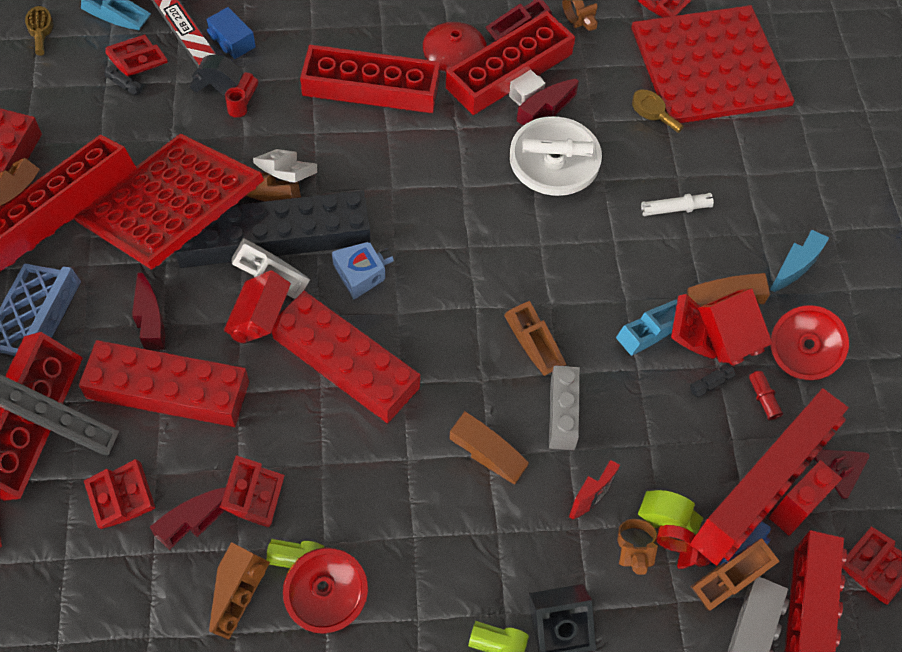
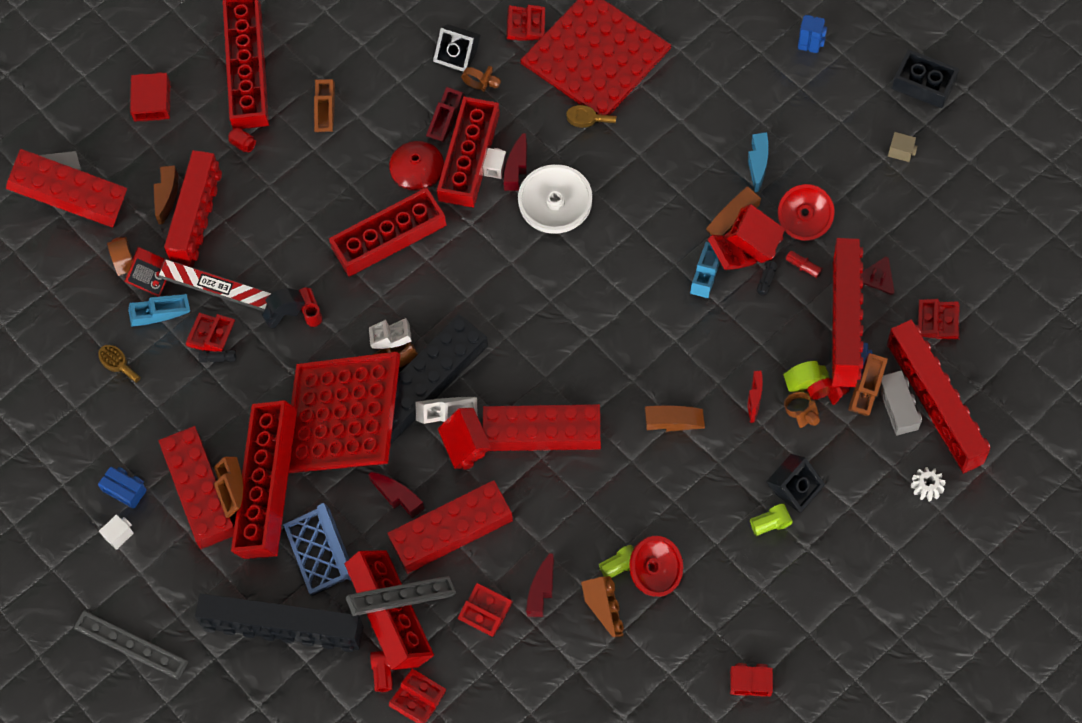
camera: 30 degrees left, 5 degrees up
(230, 33) = (258, 268): blue brick -> none
(252, 491) = (564, 546): red slope -> none
(361, 267) = (499, 365): medium blue torso -> none
(535, 337) = (643, 330): dark orange slope -> none
(558, 147) = (561, 189): white pin -> none
(564, 408) = (697, 360): light grey brick -> none
(684, 203) = (661, 170): white pin -> none
(805, 497) = (874, 311): red brick -> none

